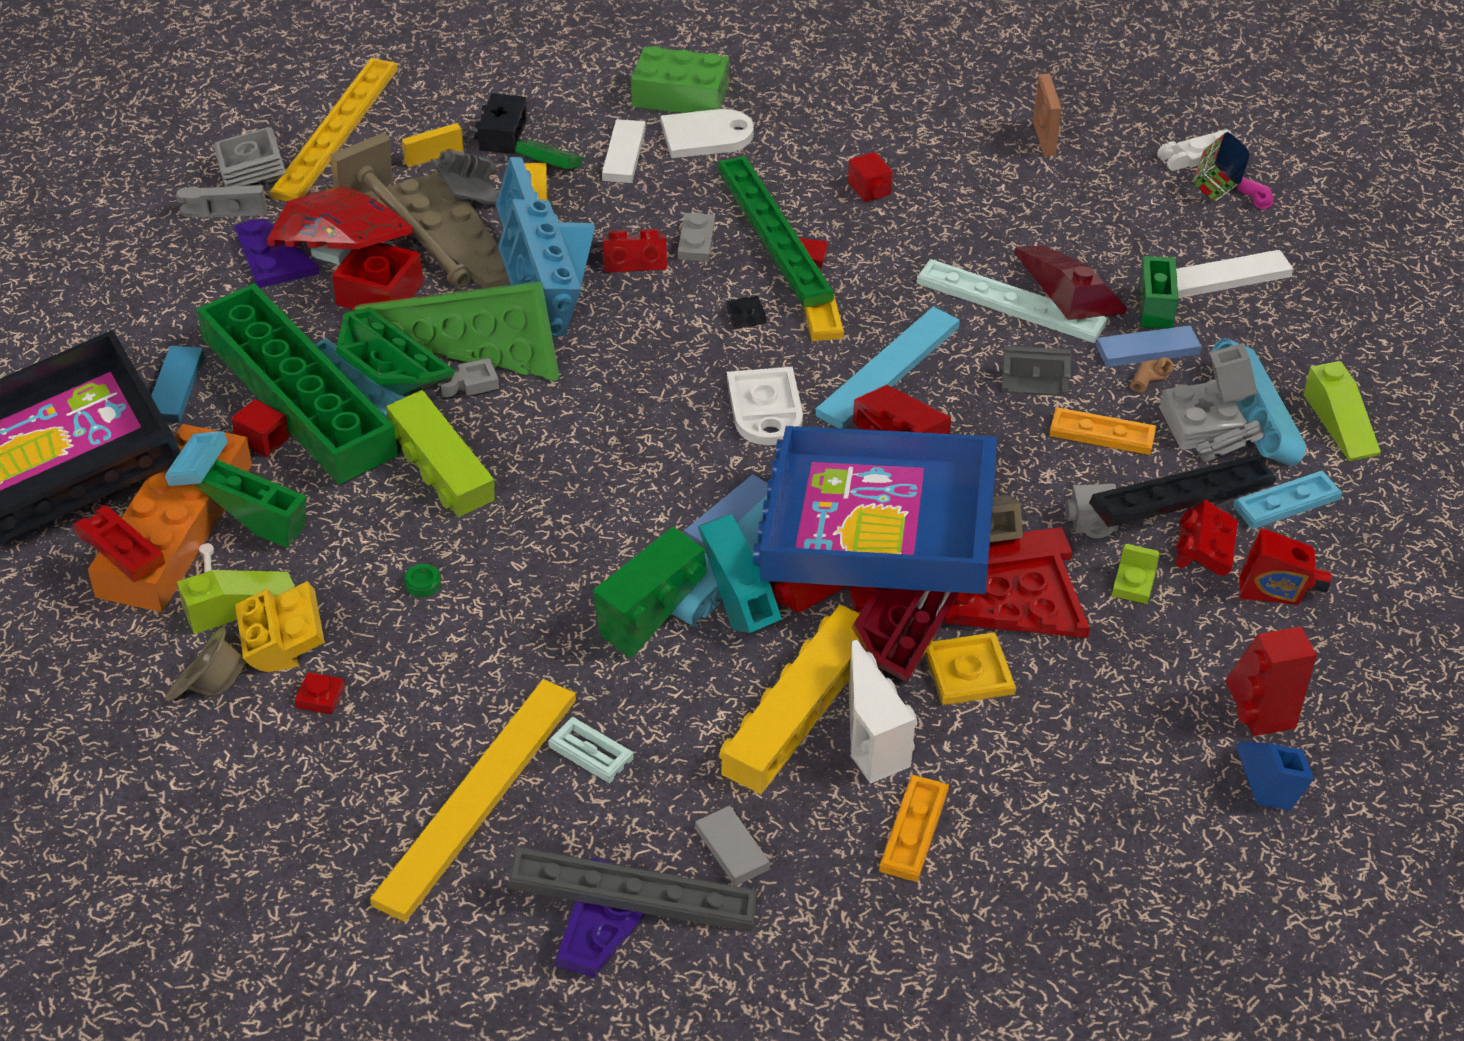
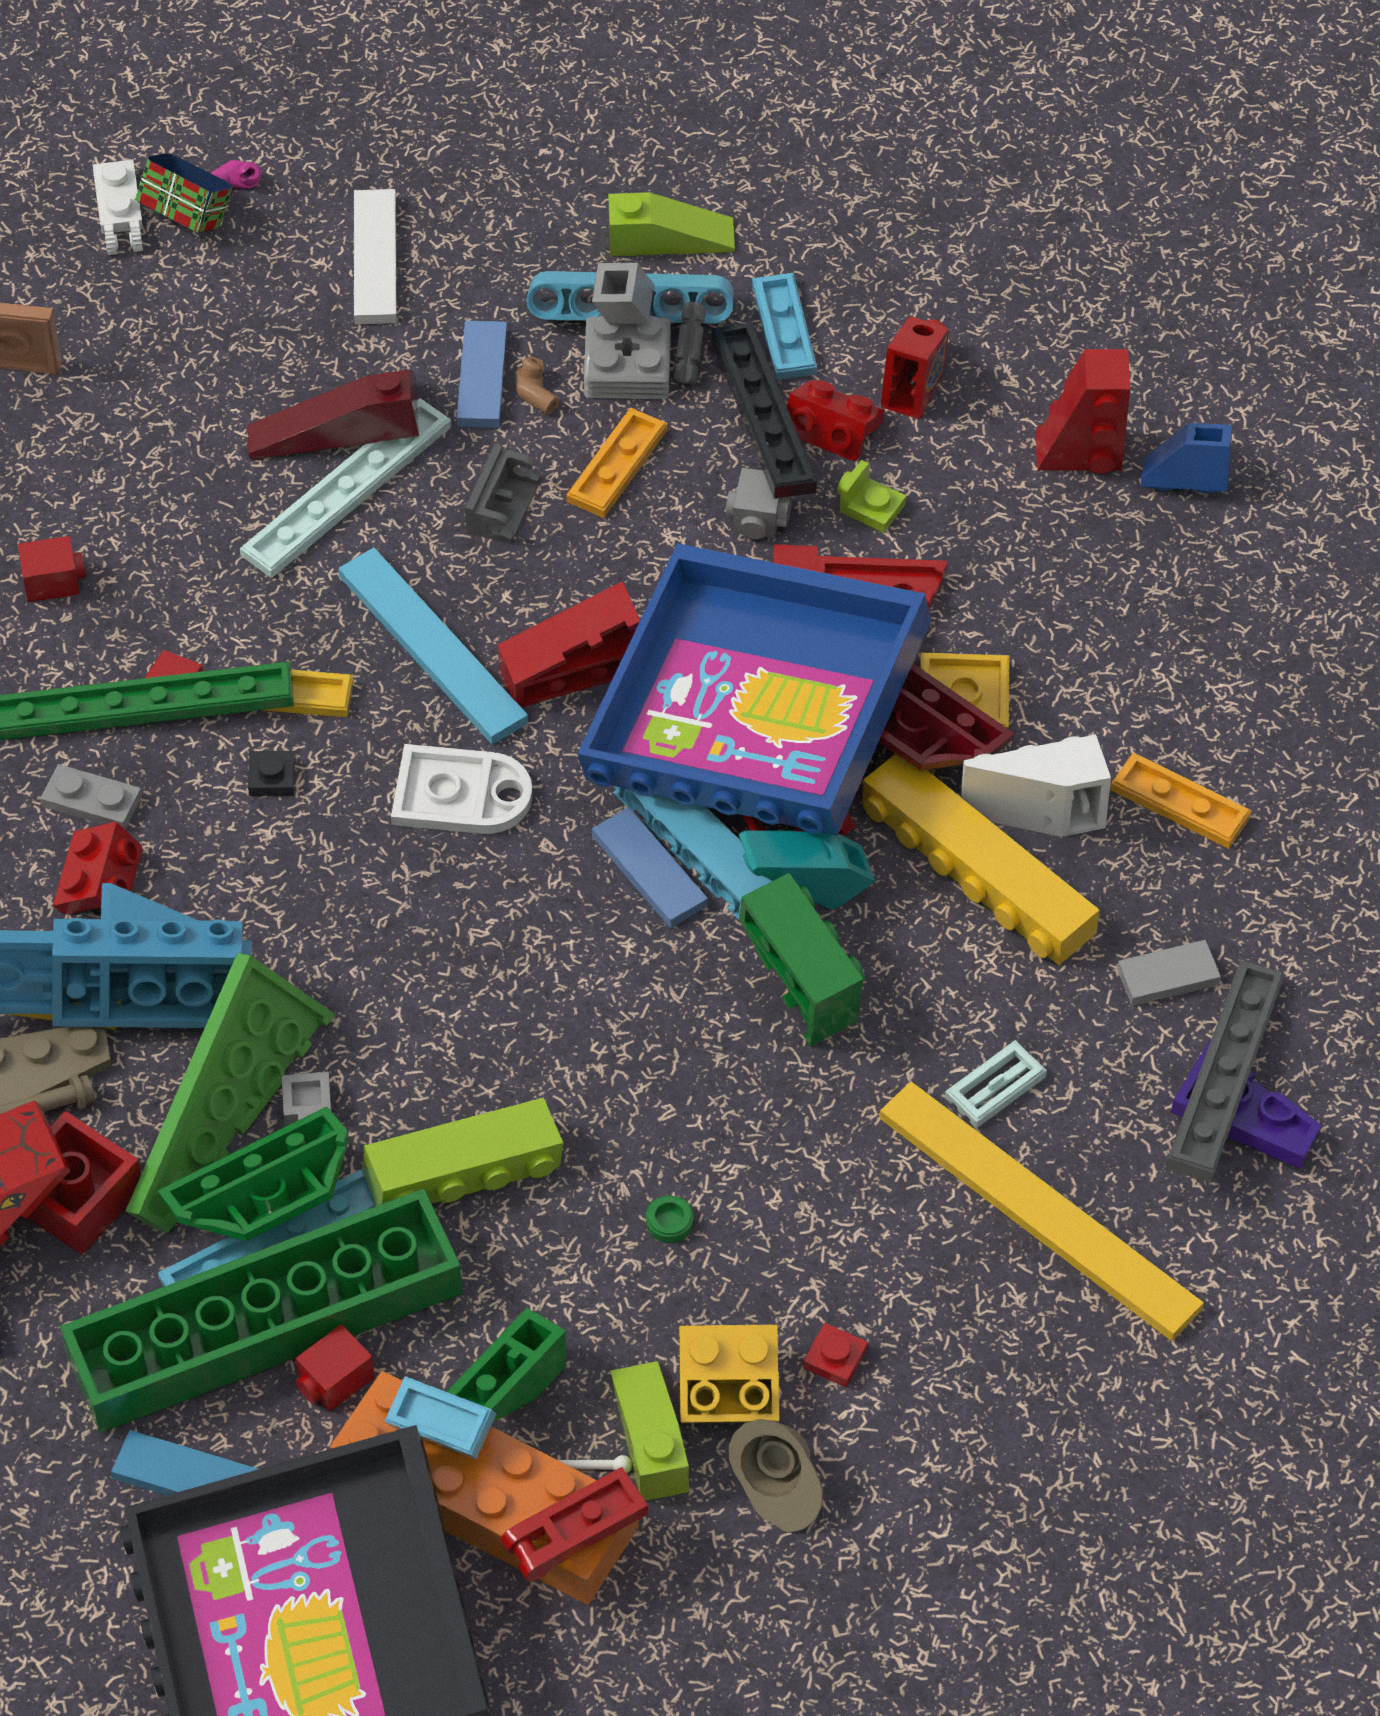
camera: 75 degrees left, 10 degrees up
(1158, 292) = (409, 329): green brick -> none

